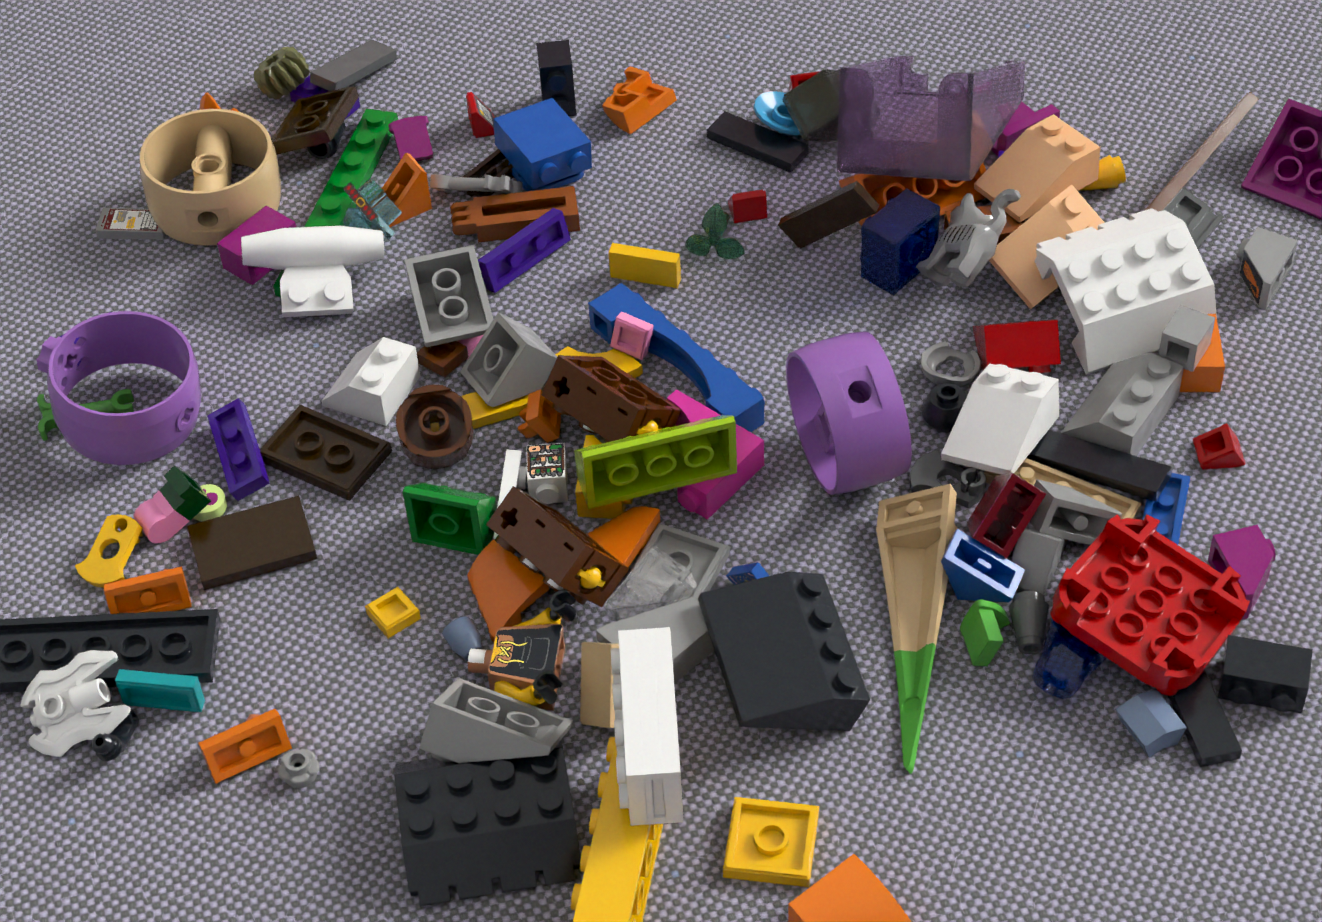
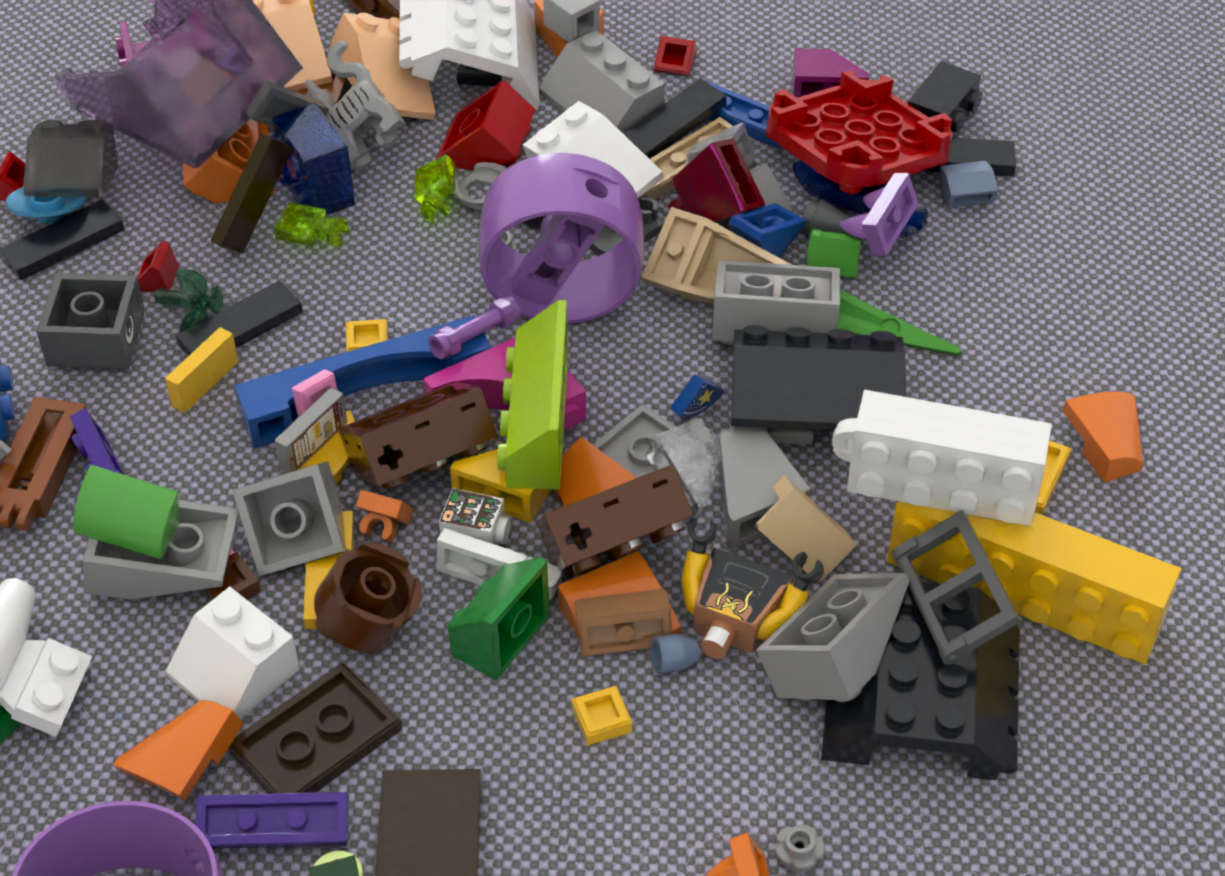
camera: 75 degrees left, 0 degrees up
(283, 380) = (182, 749): none -> orange slope
(444, 260) = (126, 512): none -> bright green brick
(478, 593) = (622, 621): none -> medium nougat slope
(551, 792) = (983, 569): none -> dark grey window
(594, 341) = (311, 431): none -> light grey tile
(660, 184) = (91, 321): none -> dark grey brick
(718, 273) = (245, 318): none -> black tile
(732, 351) = (365, 333): none -> yellow tile
(769, 413) = (448, 341): none -> medium lavender bar
(840, 270) = (307, 224): none -> clear neon green plate
(884, 601) = (774, 298): none -> light grey slope
(919, 180) = (275, 100): none -> dark grey tile
(926, 333) = (433, 184): none -> clear neon green plate
(1024, 648) = (888, 215): none -> medium lavender tile

